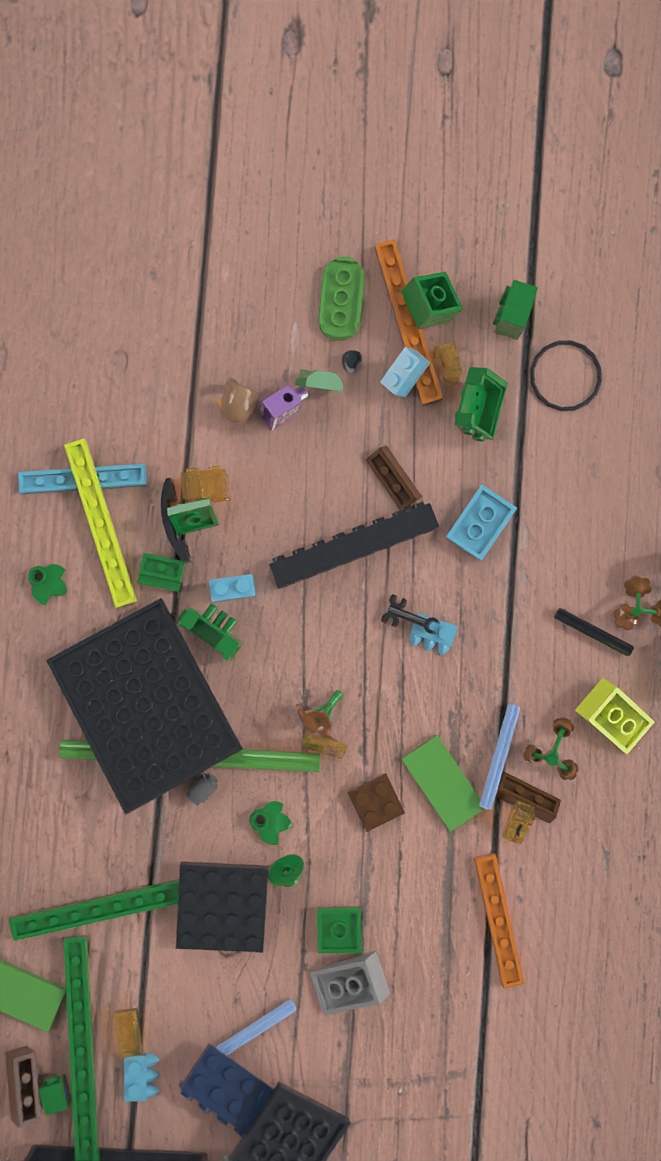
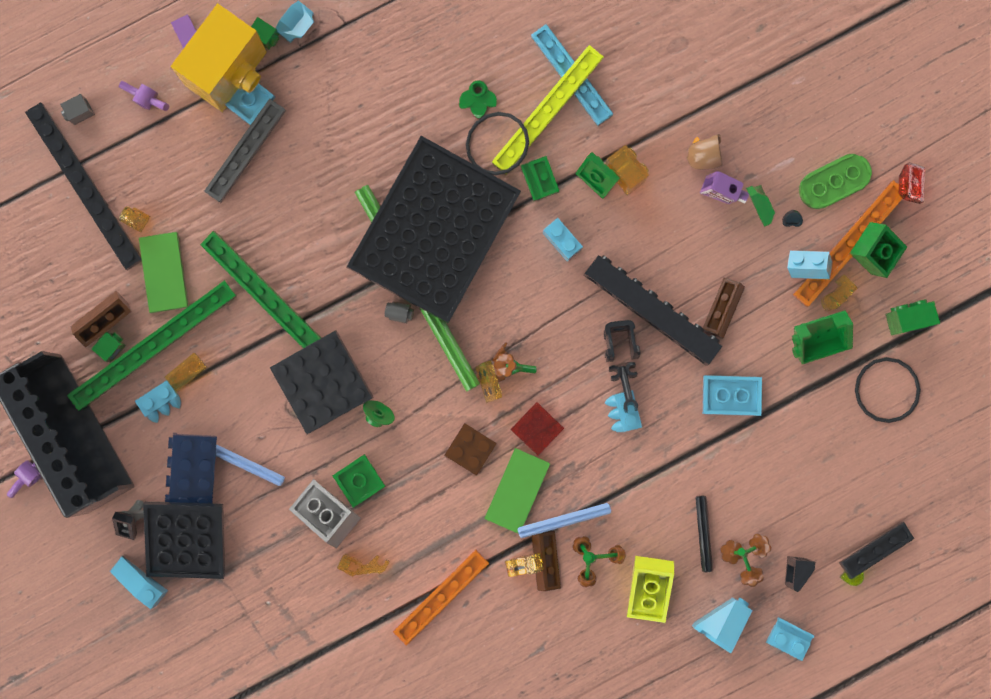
camera: 55 degrees right, 0 degrees up
(69, 586) = (493, 115): none -> black piece
(169, 495) = (599, 147): black slope -> none
(210, 630) = (519, 244): green piece -> none
(273, 822) = (405, 382): green plate -> none
(349, 587) = (620, 326): none -> black piece
(389, 229) = (912, 183): none -> clear red slope
(396, 726) = (537, 428): none -> clear red tile
(429, 971) = (371, 567): none -> clear yellow piece

